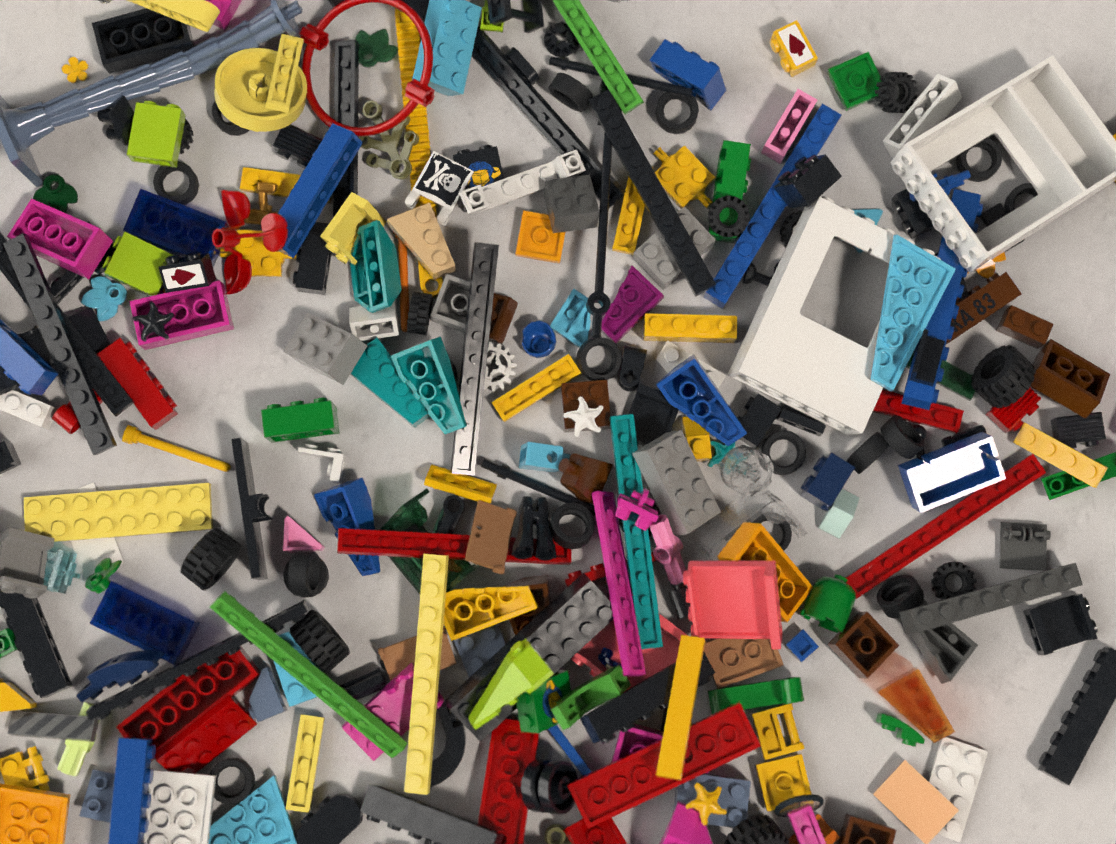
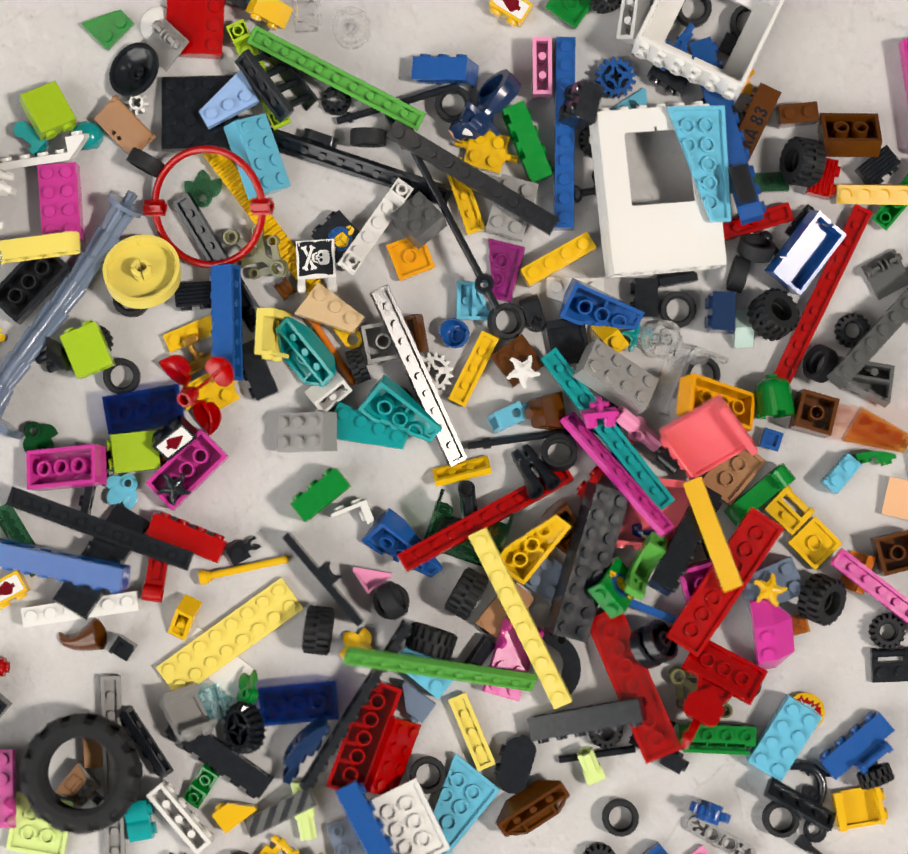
camera: 30 degrees left, 5 degrees up
(60, 344) = (116, 543): black plate -> none
(71, 614) = (244, 727): none -> black gear
(83, 465) = (184, 617): none -> yellow slope
(183, 431) = (239, 551): none -> black plate
(246, 596) = (361, 640): none -> yellow plate
(284, 73) = (153, 249): light yellow plate -> none
(386, 613) = (466, 593): none -> black tyre
(394, 193) = (284, 288): none -> reddish brown wheel
(491, 542) = (510, 500): medium nougat door -> none
(519, 672) = (586, 580): lime wedge -> none
(694, 136) = (491, 99): none -> dark blue animal
(714, 216) = (530, 154): black tyre -> none
(793, 803) = (831, 552): black wheel -> none
(854, 725) = (841, 473): none -> medium azure brick
(867, 184) = (606, 79): none -> blue gear
(880, 515) = (773, 314): none -> black tyre

